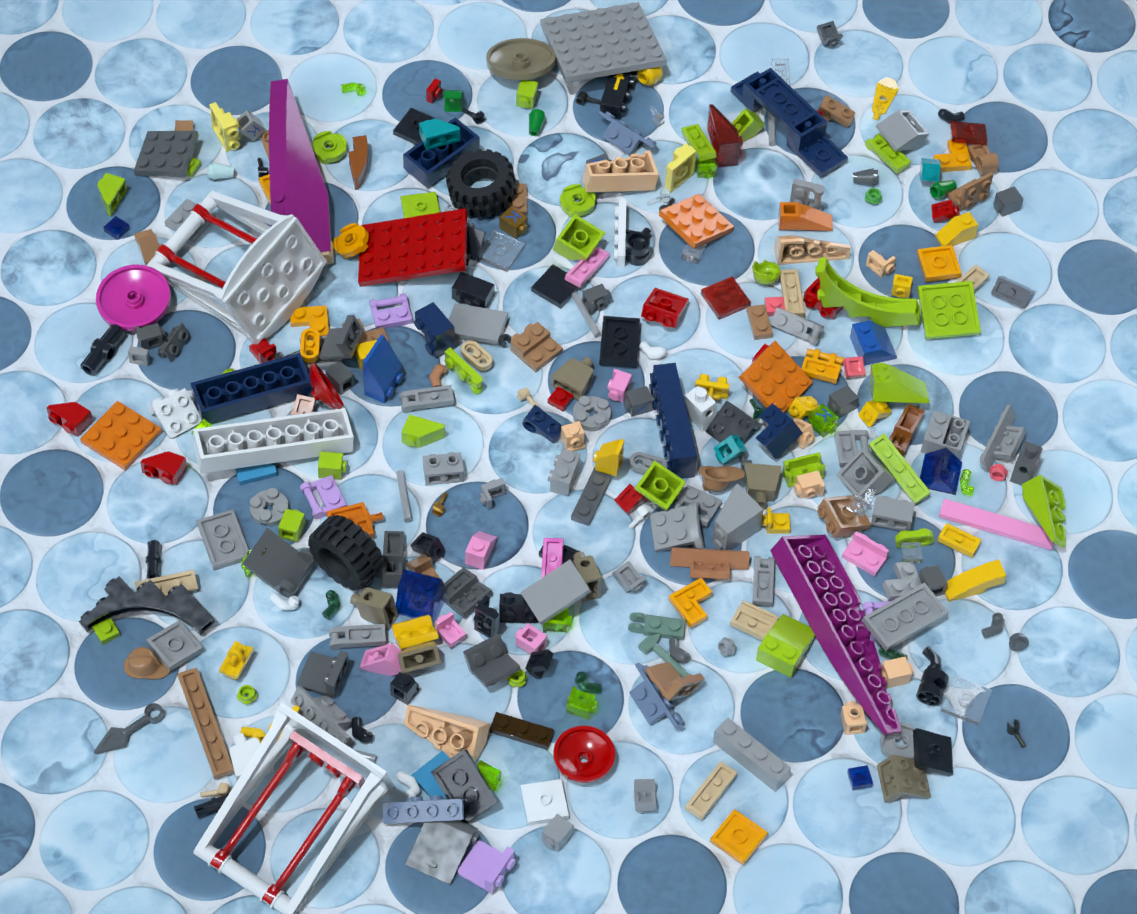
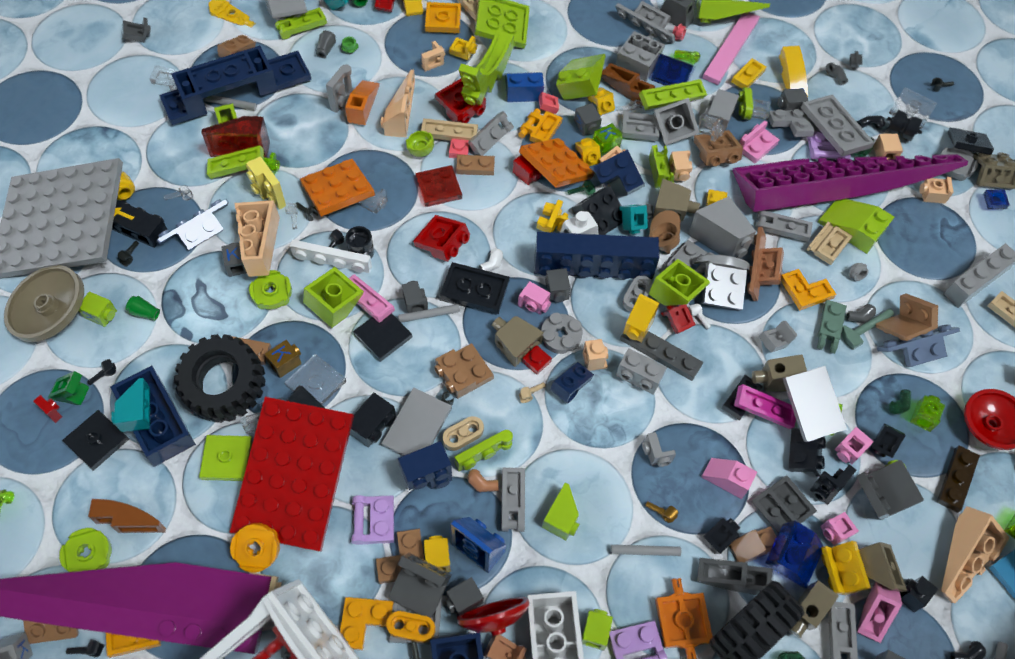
camera: 80 degrees left, 5 degrees up
(443, 468) = (618, 497): light grey brick -> none

